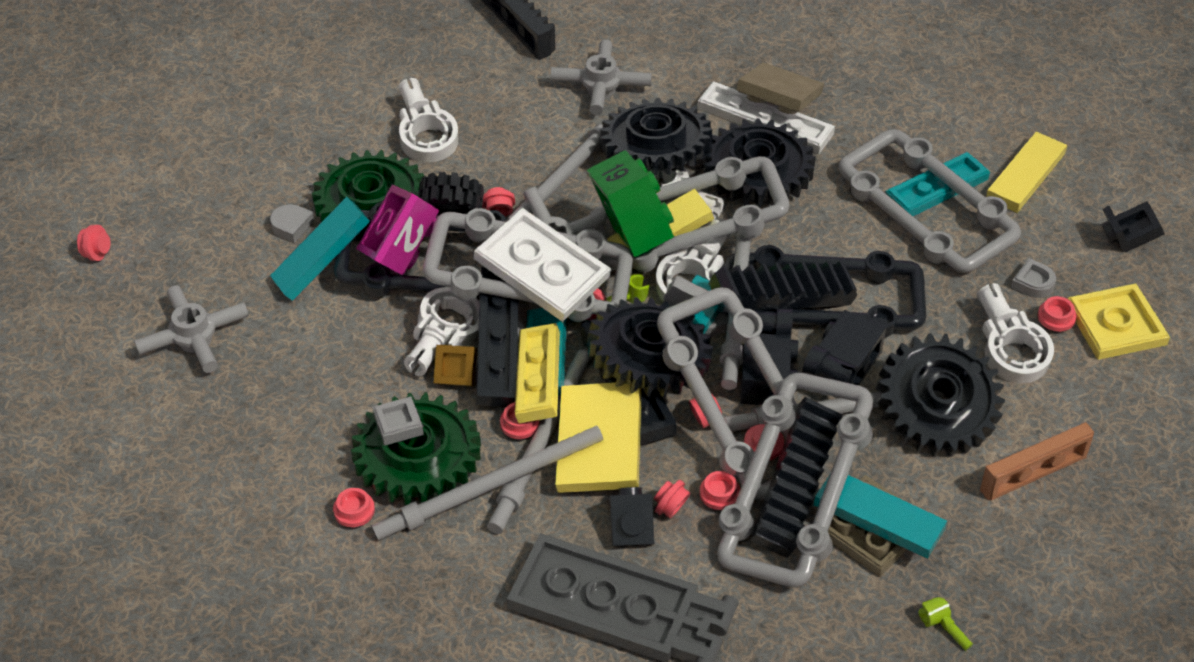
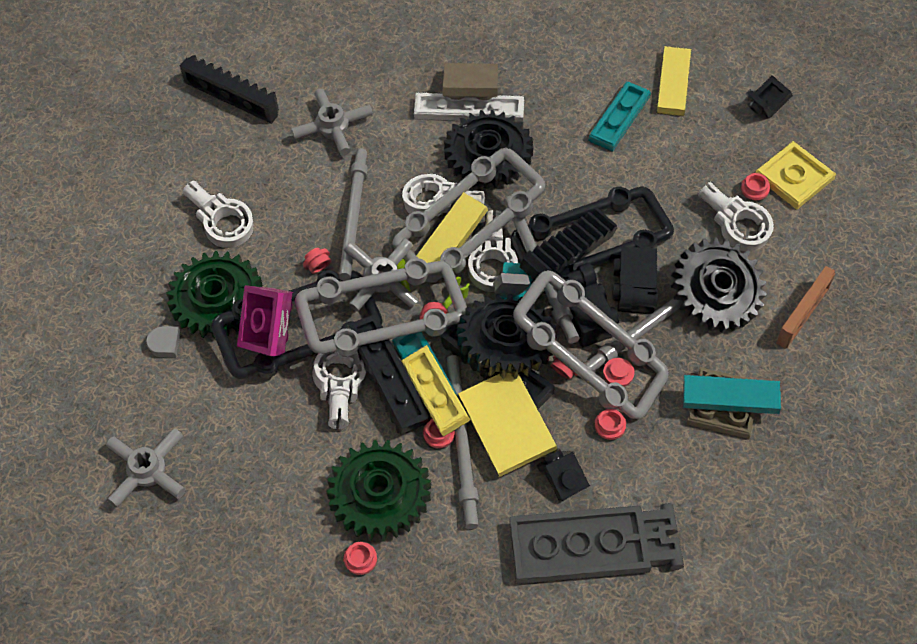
camera: 25 degrees left, 10 degrees up
(93, 242) = (17, 427): coral plate -> none
(319, 248) = (209, 358): teal tile -> none
(397, 420) = (360, 477): light grey tile -> none
(414, 515) = (409, 542): light grey bar -> none
(451, 192) = (286, 272): black tyre -> none
(455, 365) = (367, 409): pearl gold plate -> none
(542, 264) = (395, 304): white tile -> none
(632, 202) = (433, 226): green brick -> none
(658, 134) = (407, 158): black gear -> none
(671, 498) = (583, 445): coral plate -> none
(796, 477) = (660, 392): black gear -> none
(812, 539) = (637, 442): light grey bar -> none
(937, 244) = (650, 165): light grey bar -> none
(938, 611) = (804, 448): lime hand -> none
(1034, 279) = (725, 165): light grey tile -> none

